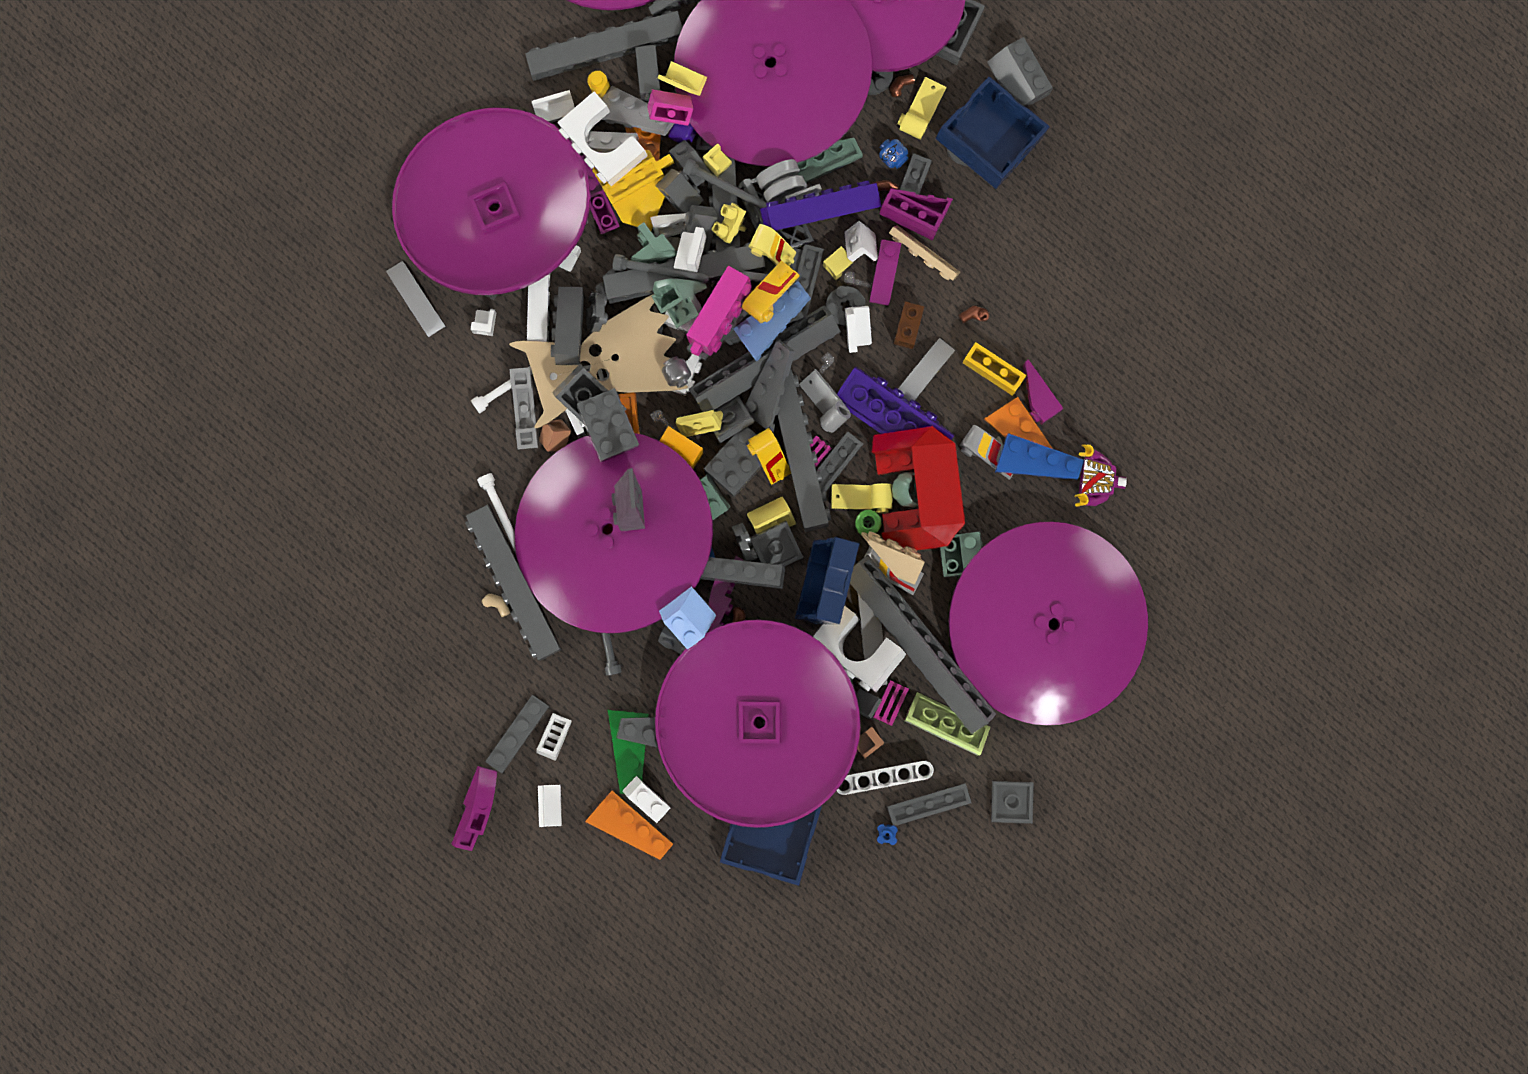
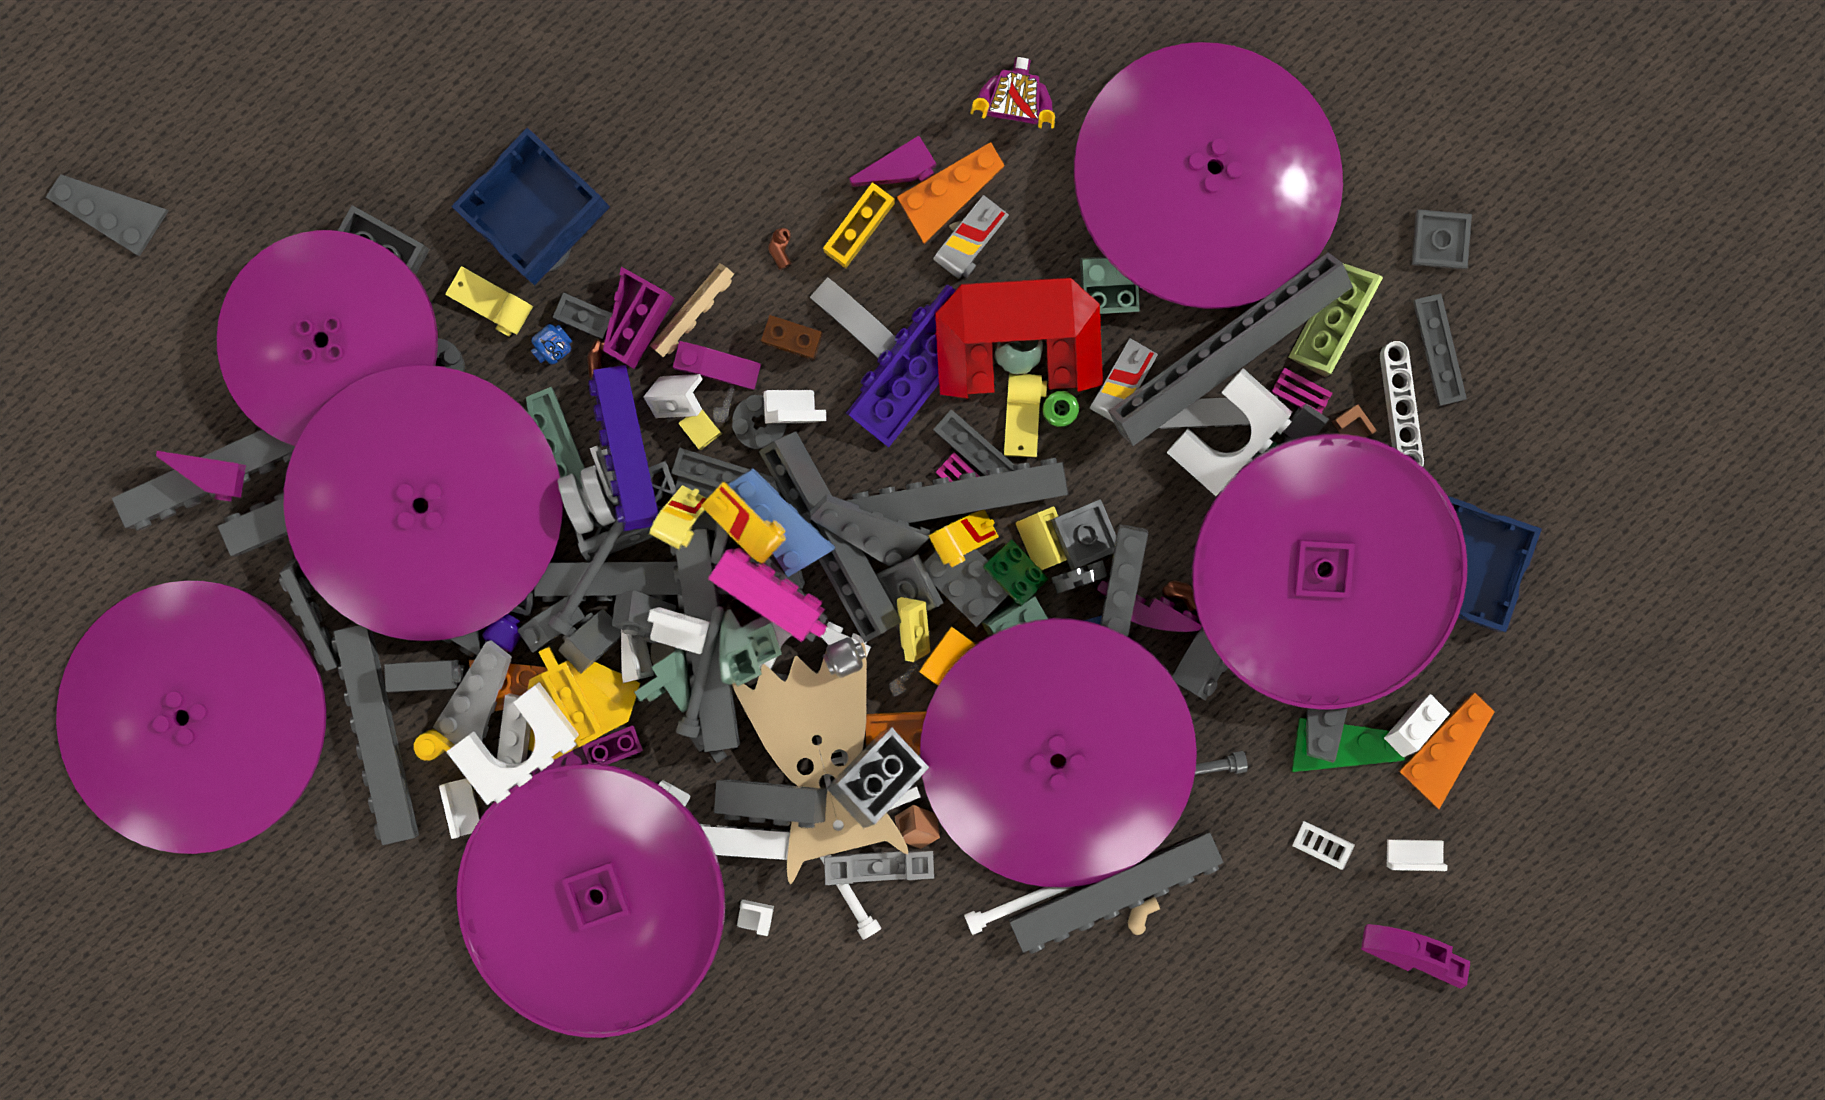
camera: 85 degrees left, 5 degrees up
(415, 299) = (717, 1010): light grey slope -> none
(517, 734) = (1317, 894): dark grey plate -> none
(595, 314) = (752, 764): dark grey plate -> none
(607, 425) = (917, 754): dark grey brick -> none
(628, 503) = (1031, 730): dark grey slope -> none
(670, 107) = (475, 647): dark pink brick -> none
(684, 78) = (435, 626): light yellow panel -> none
(688, 617) = (1184, 658): light blue slope -> none
(716, 160) = (551, 586): light yellow panel -> none
(731, 224) = (642, 572): light yellow hips -> none
(744, 496) = (1015, 572): none -> dark green hinge
(826, 400) = (902, 446): light grey door -> none
(827, 581) = (1144, 468): dark blue tile -> none
(828, 360) = (833, 450): clear hand -> none
(883, 829) = (1469, 405): blue plate -> none
(898, 84) = (451, 331): copper arm -> none
(902, 562) = (1117, 369): tan slope -> none
(1020, 73) = (448, 163): dark grey slope -> none
(1033, 459) = (986, 179): blue wing -> none

